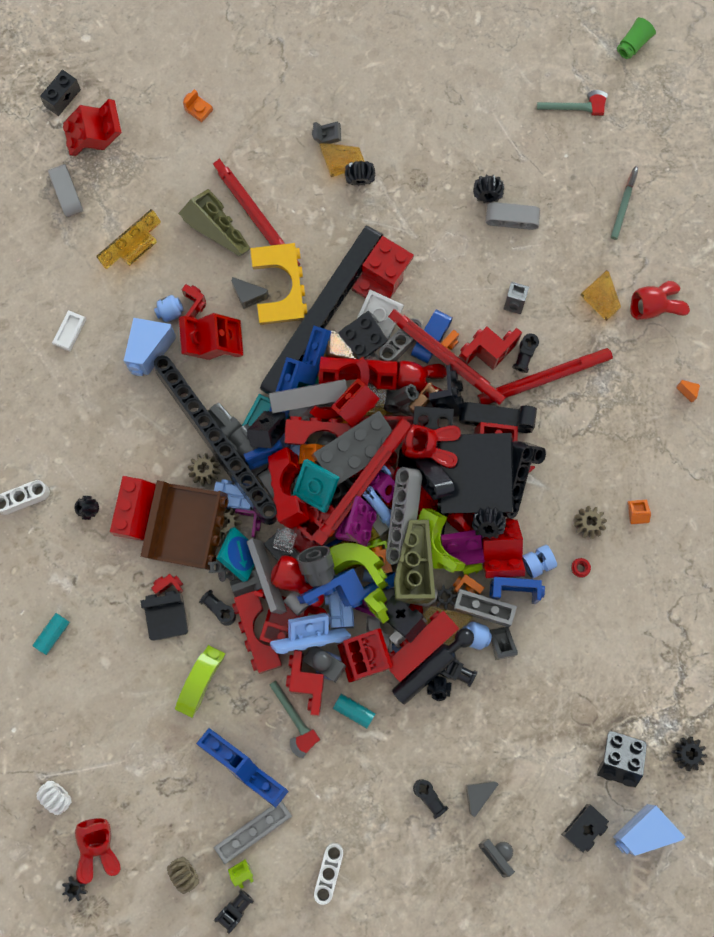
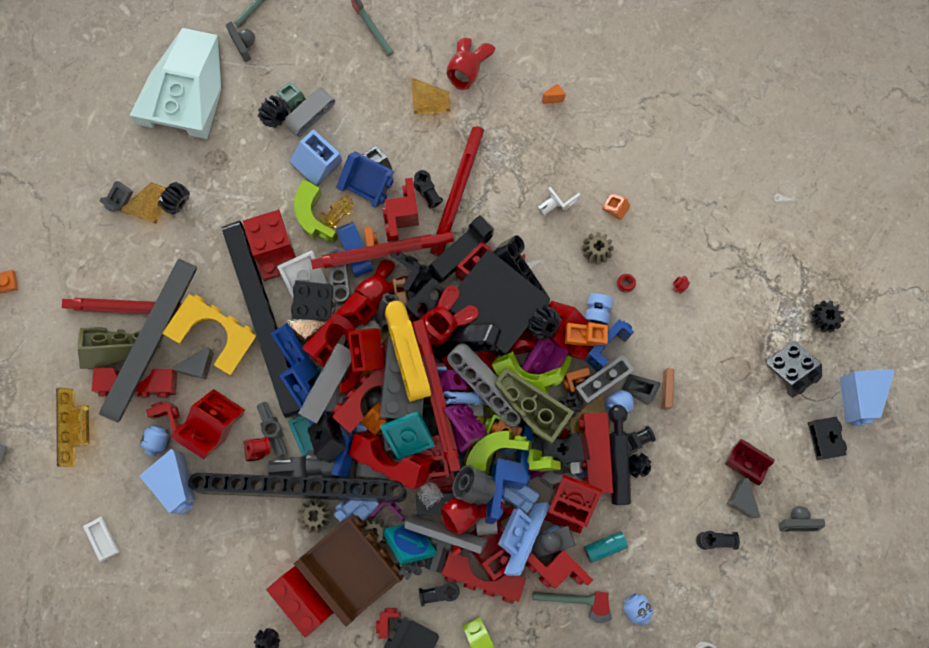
camera: 55 degrees left, 0 degrees up
(213, 276) = (159, 382): none -> red arch
(220, 386) = (256, 448): none -> red piece
(237, 243) = (147, 341): none -> dark grey beam
(239, 394) = (268, 420): none -> dark grey axle
(325, 772) = (638, 609): none -> light blue head
(377, 432) = (407, 351): none -> yellow piece
(435, 271) = (304, 203): none -> lime arch
(450, 299) = (338, 209): none -> clear yellow wing
(453, 108) = (183, 86): none -> light aqua wedge
(478, 249) = (315, 158): none -> light blue slope
(494, 299) = (366, 178): none -> blue panel
(507, 564) = (586, 335): none -> orange slope
(513, 191) = (291, 95): none -> sand green bracket
(513, 776) = (749, 461): none -> dark red bracket
(520, 666) = (667, 389): none -> nougat tile
(526, 120) = (243, 39): none -> dark grey tile
(600, 458) = (555, 201): none -> white bracket
(616, 612) = (680, 284): none -> red plate

